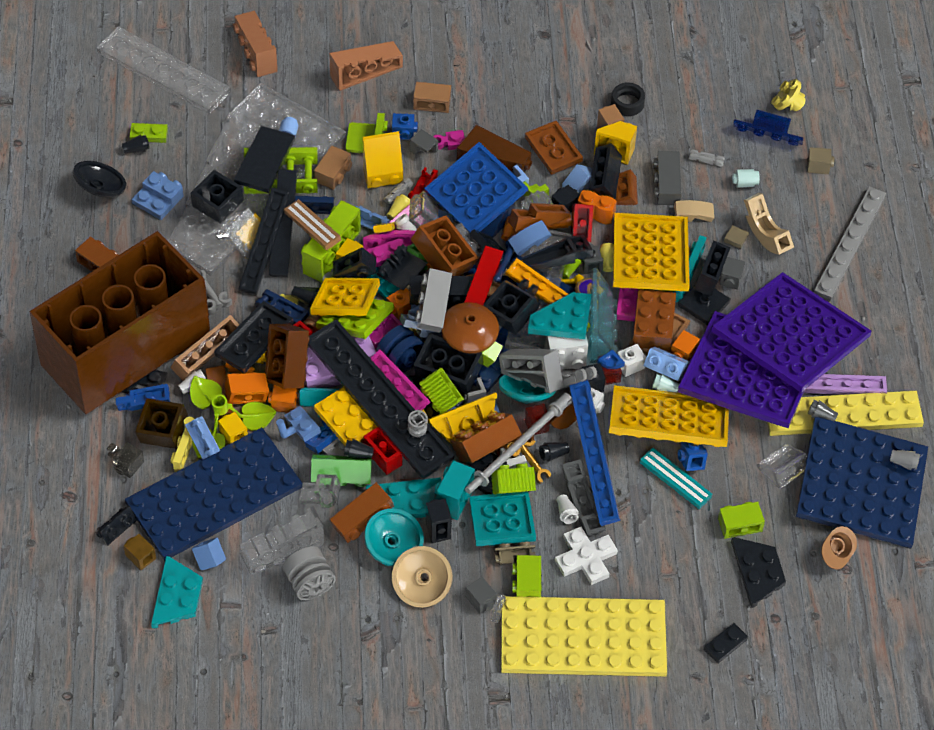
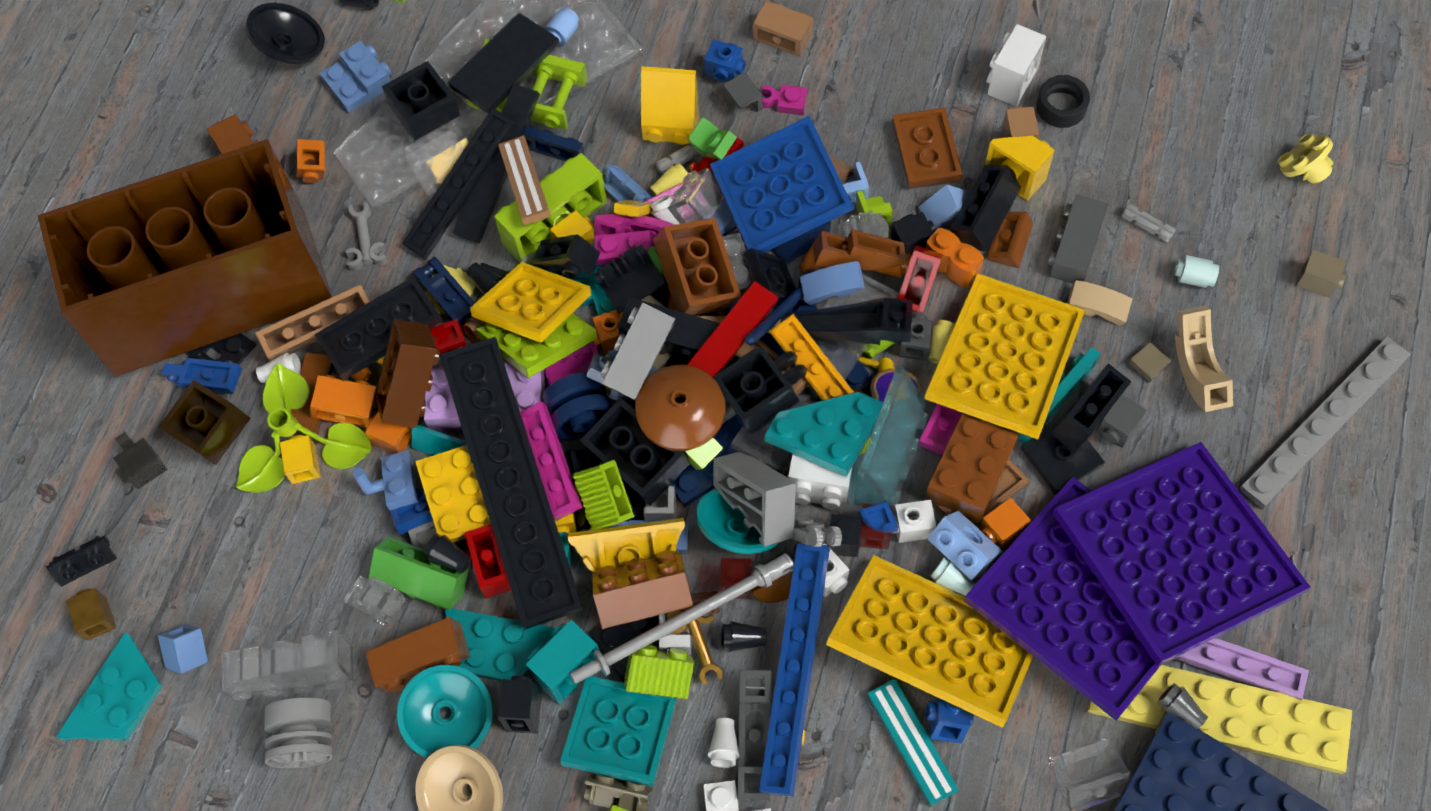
camera: 25 degrees right, 10 degrees up
(184, 446) = (224, 463): light yellow plate -> none
(202, 437) = (246, 463): medium blue hinge -> none
(213, 493) = (234, 551): dark blue plate -> none
(333, 167) = (603, 97): medium nougat brick -> none
(357, 131) = (668, 54): lime bracket -> none
(417, 423) = (546, 546): light grey wheel -> none
(420, 175) = (710, 140): none -> bright green slope
(504, 150) = (840, 131): reddish brown slope -> none
(591, 83) = (1015, 64): none -> white brick
(769, 125) = (1263, 196): clear blue bracket -> none

